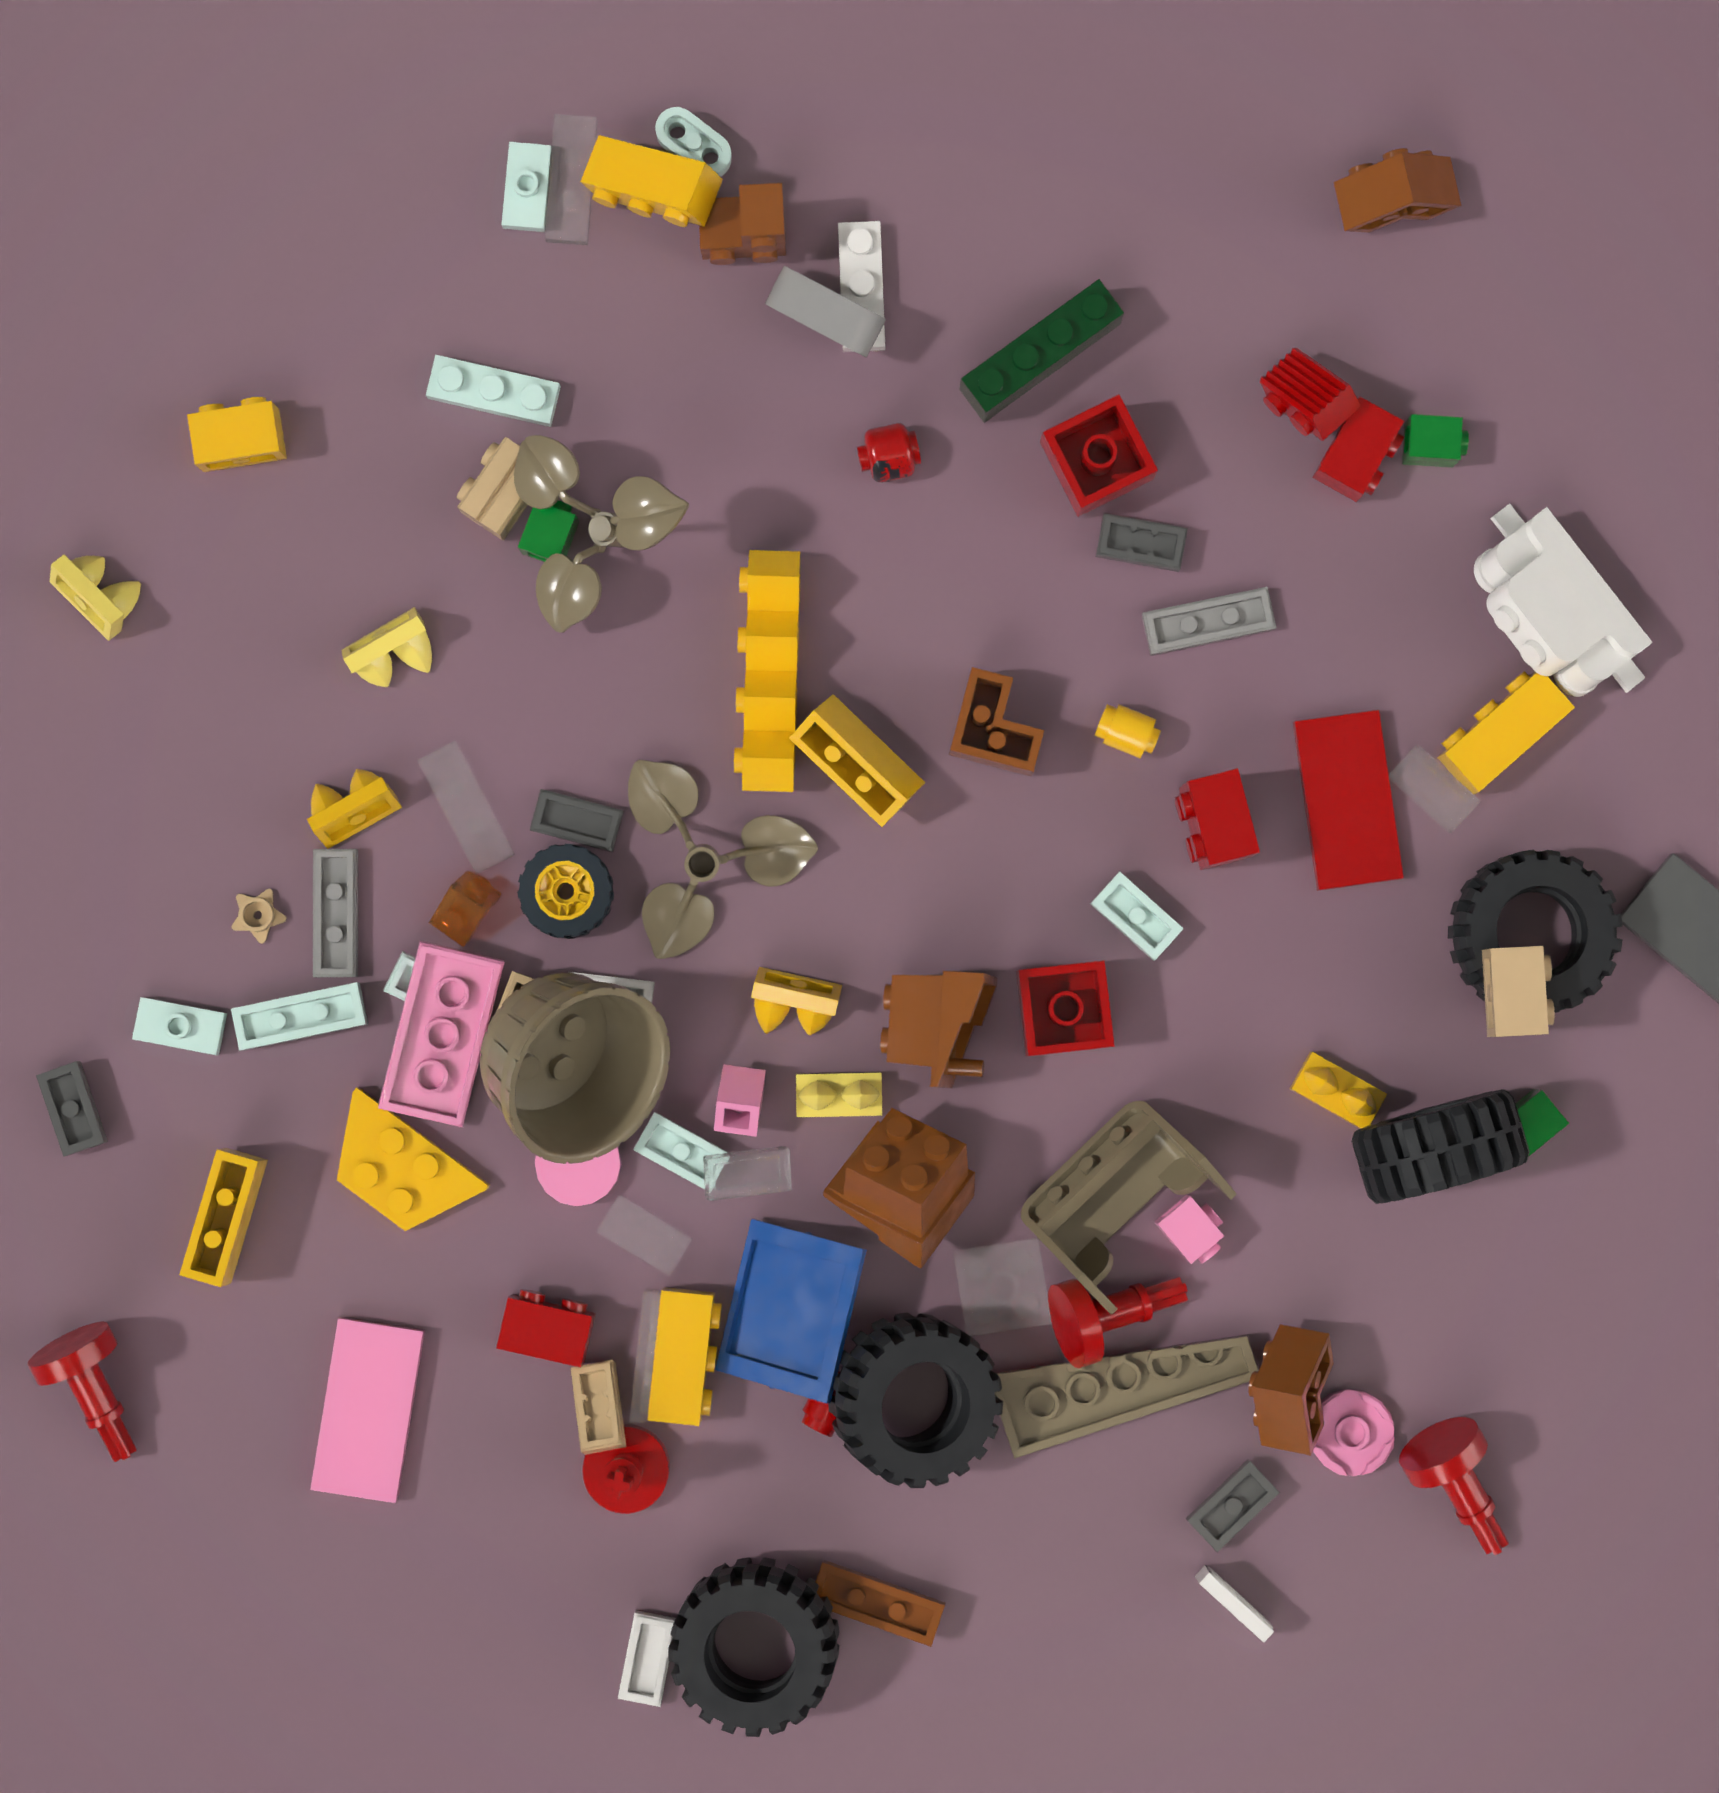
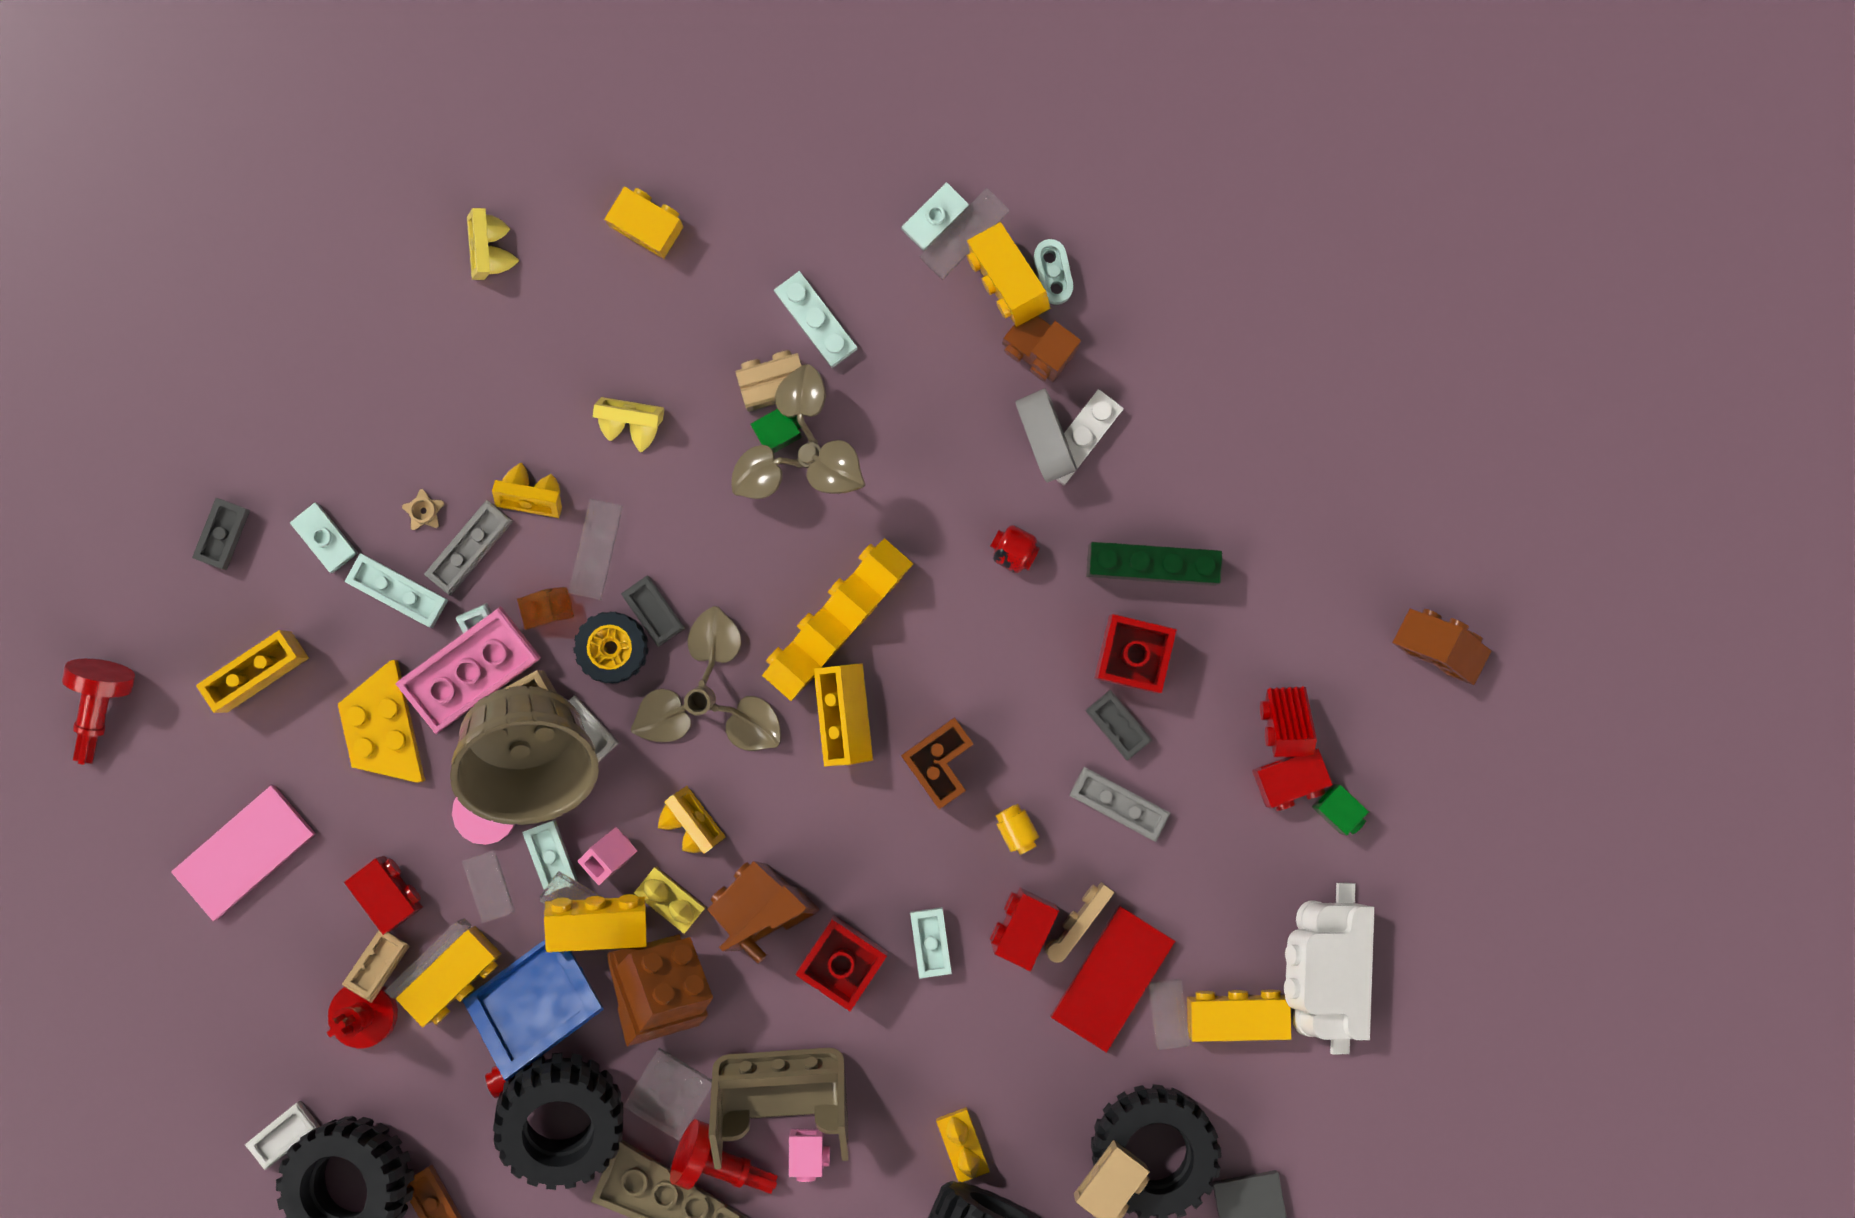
camera: 35 degrees right, 0 degrees up
(785, 1175) = (595, 923): none -> yellow brick
(1267, 773) = (1078, 923): none -> tan plate

